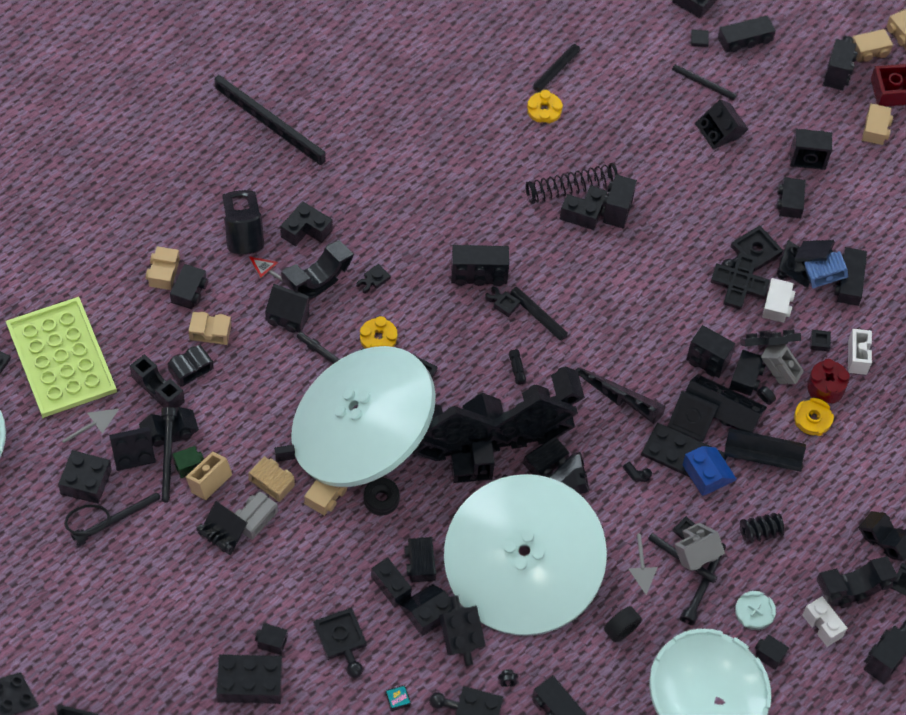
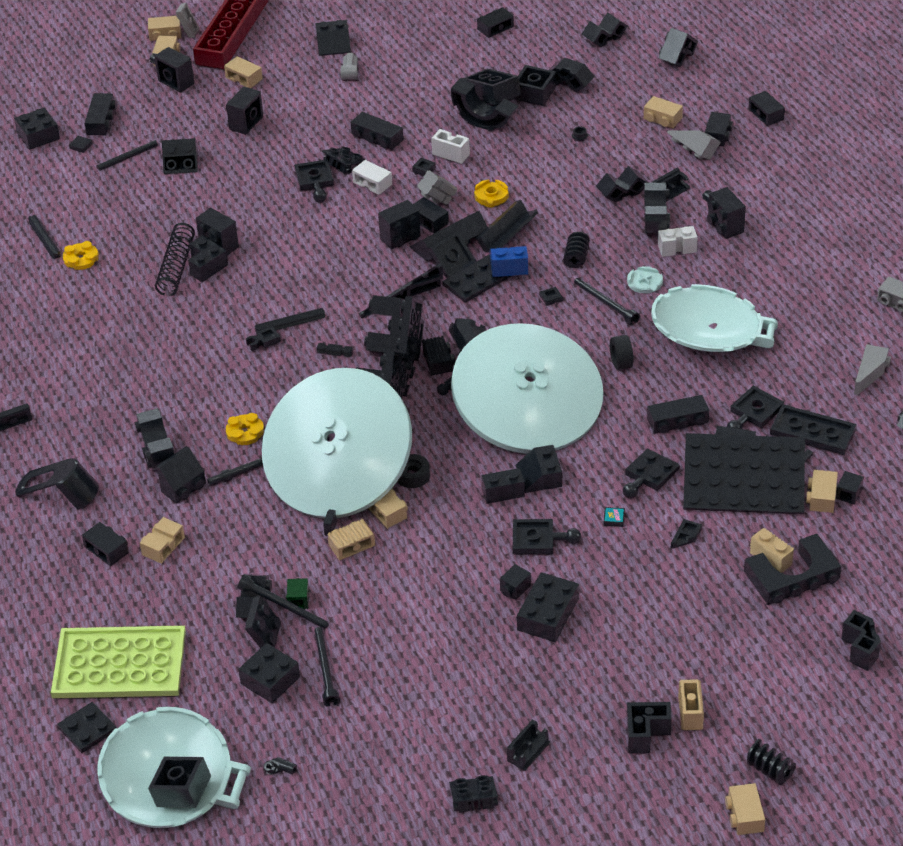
camera: 60 degrees left, 15 degrees down
(87, 533) = (309, 672): black piece -> none
(100, 419) = (207, 651): light grey piece -> none
(148, 377) = (215, 590): black arch -> none
(164, 268) = (71, 557): tan brick -> none
(190, 365) = (193, 565): black brick -> none
(209, 475) = (324, 579): tan brick -> none
(222, 528) = (385, 583): black hinge -> none
(257, 513) = (382, 560): light grey brick -> none
(264, 266) = (117, 487): piece -> none
(306, 221) = (94, 439): black brick -> none
(375, 276) = (182, 415): black plate -> none
(421, 559) = (489, 460): black brick -> none
(462, 630) = (575, 449): black plate -> none
(475, 465) = (419, 395): black brick -> none
(479, 265) = (221, 335): black brick -> none
(508, 675) = (631, 439): black plate -> none
(637, 475) = (483, 309): black arm -> none
(643, 575) = (576, 334): light grey piece -> none
(672, 551) = (576, 304): black bar -> none
(699, 546) = (576, 283): light grey brick -> none
(740, 281) = (340, 191): black plate -> none
(766, 395) = (456, 211): black tile -> none
(770, 338) = (416, 175): black plate -> none
(771, 651) = (687, 276): black brick -> none
(791, 197) = (280, 139): black brick -> none
(815, 250) = (345, 135): black piece -> none
(827, 271) = (366, 136): medium blue brick -> none
(828, 381) = (466, 171): dark red brick -> none

